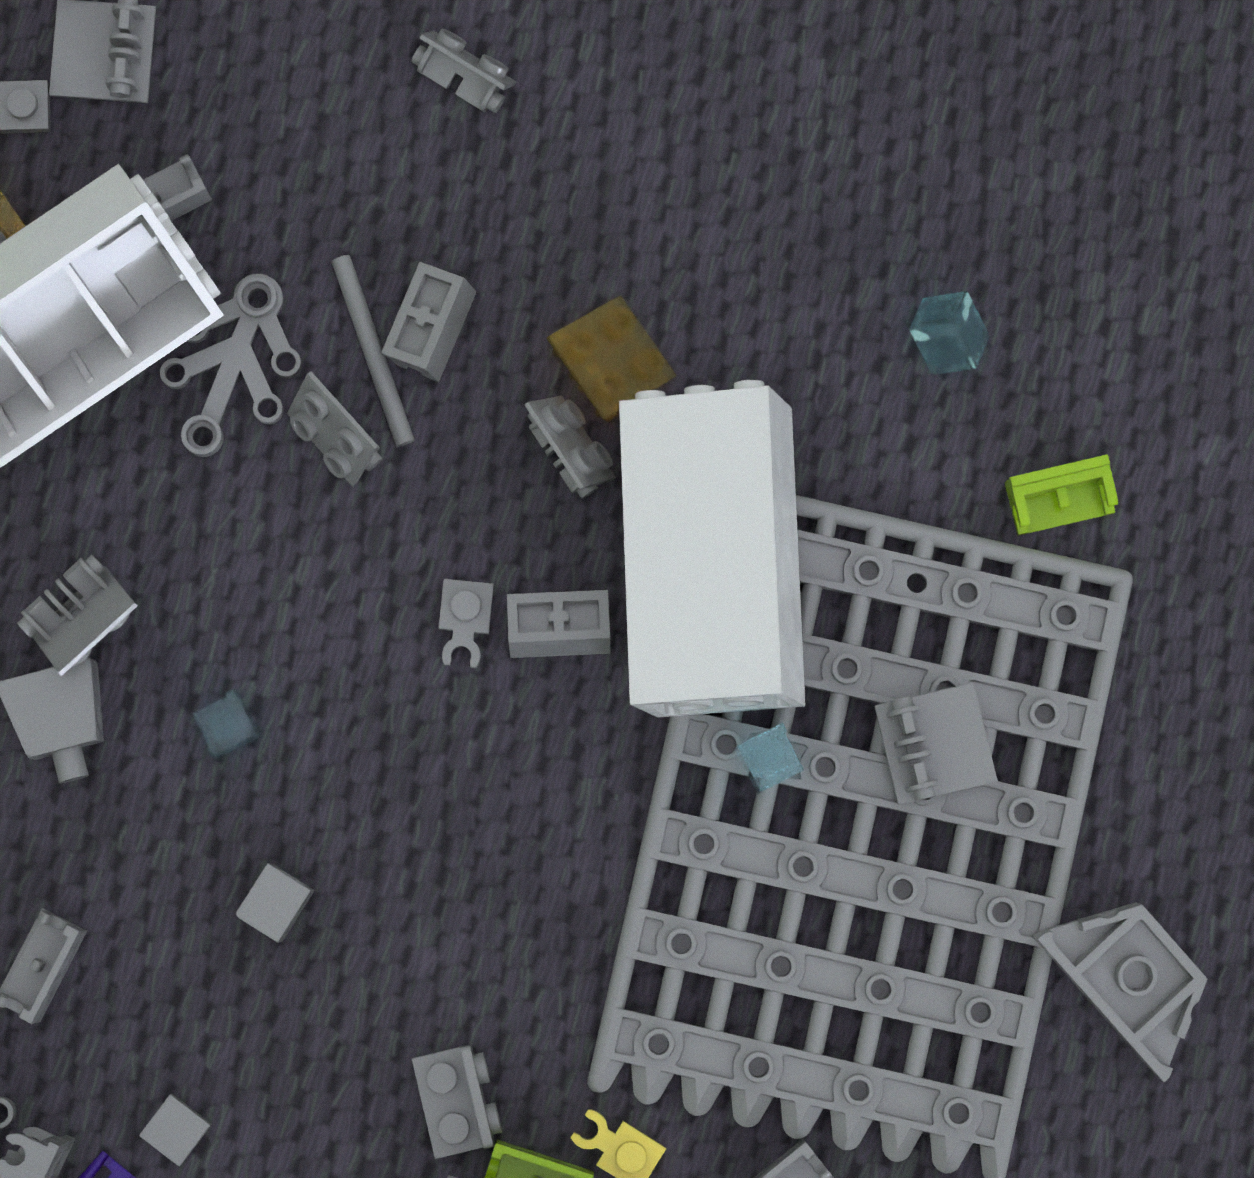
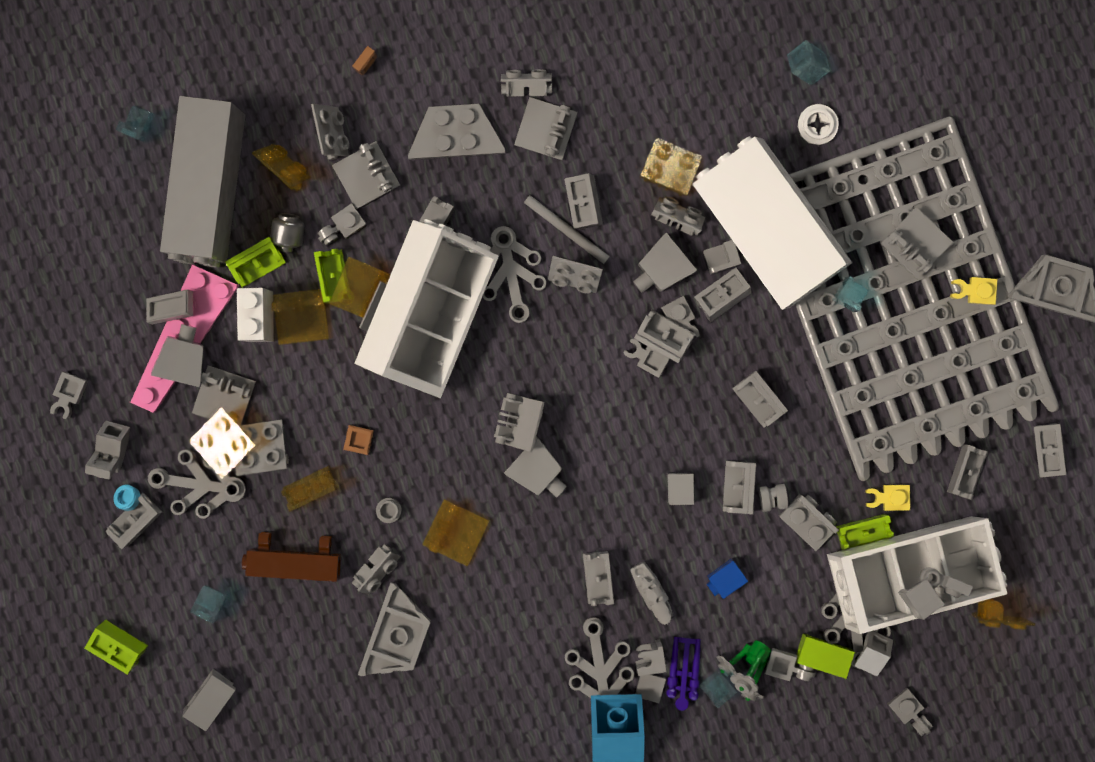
camera: 25 degrees left, 5 degrees up
(113, 1050) = (652, 592): none -> light grey hinge
(175, 1129) = (699, 609): light grey tile -> none
(227, 724) = (610, 427): clear light blue panel -> none
(251, 1107) = (726, 579): none -> blue brick
(293, 77) = (455, 133): none -> light grey wing
(371, 653) = (649, 358): none -> light grey plate
(376, 965) = (739, 487): none -> light grey hinge
(409, 1017) = (767, 498): none -> light grey wheel
(415, 629) = (665, 336): none -> light grey hinge
(447, 164) = (546, 128): none -> light grey hinge
(490, 512) = (663, 266): none -> light grey torso
(507, 838) = (760, 399): none -> light grey hinge
(596, 562) = (722, 257): none -> light grey panel
(924, 439) = (826, 116): none -> white gear
(990, 891) = (978, 290): none -> light yellow plate
(1062, 495) = (900, 101): lime hinge -> none

